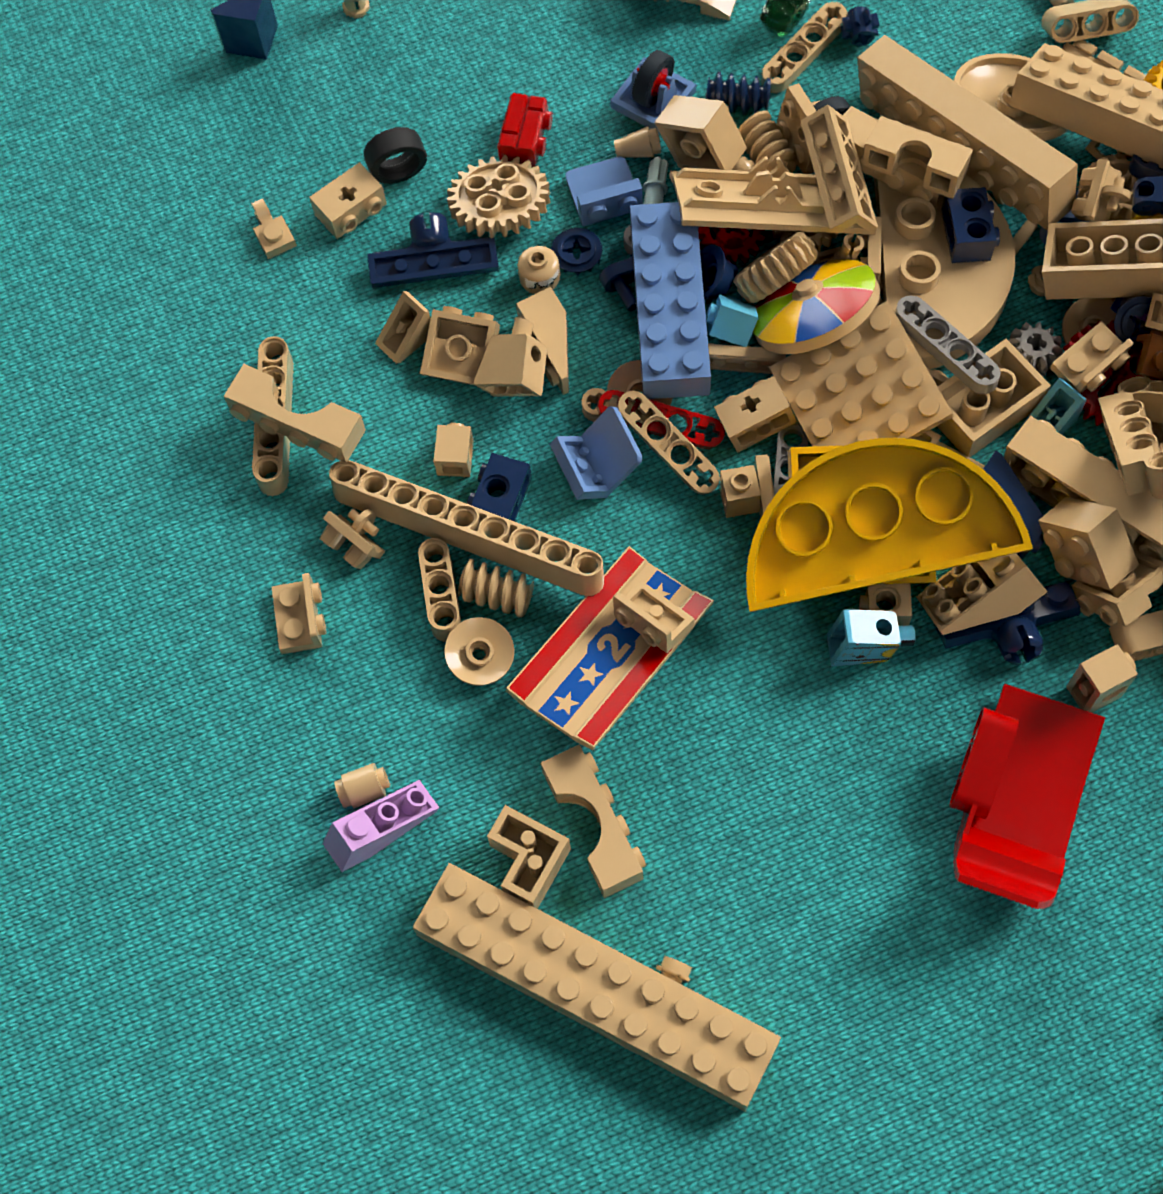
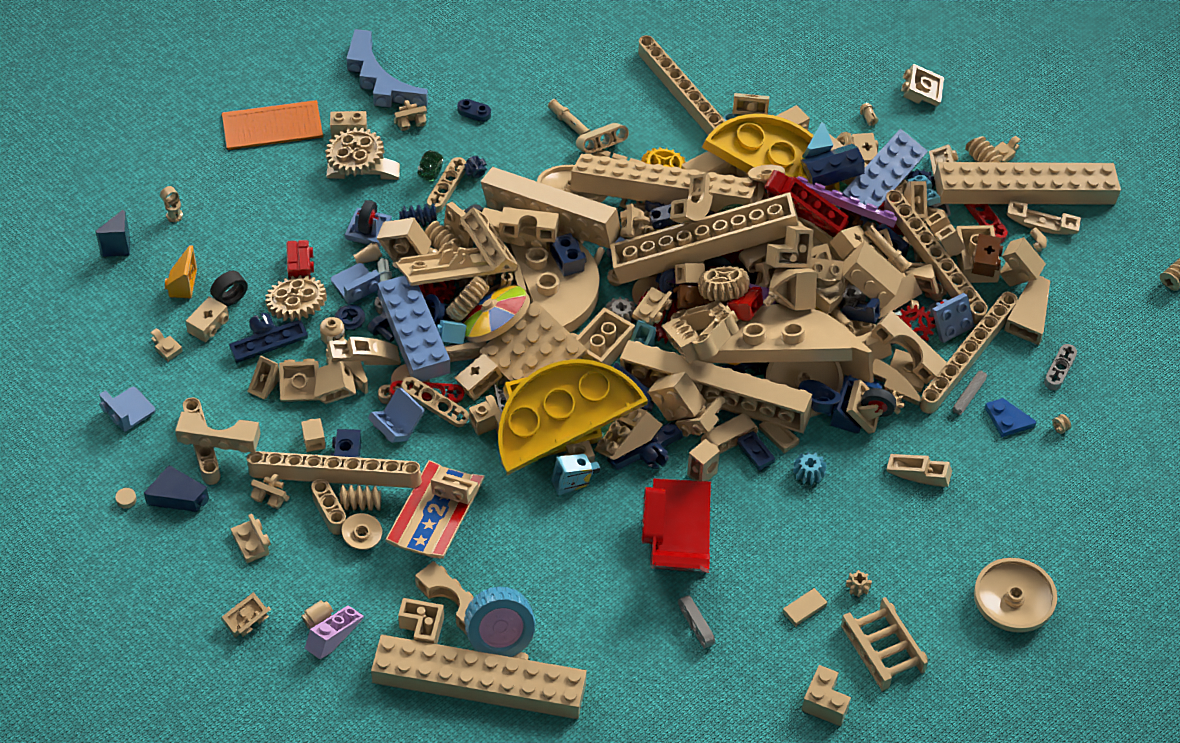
camera: 25 degrees left, 15 degrees down
(127, 486) = (125, 498): none -> tan tile
(176, 328) = (127, 408): none -> medium blue bracket
(205, 497) = (176, 491): none -> dark blue slope
(245, 755) = (244, 615): none -> tan bracket
(332, 115) = (182, 275): none -> light orange slope
(575, 321) = (364, 349): none -> tan slope
(654, 901) = (499, 622): none -> dark azure wheel
(951, 341) = (589, 326): light grey beam -> none
(1006, 986) = (696, 621): none -> light grey beam

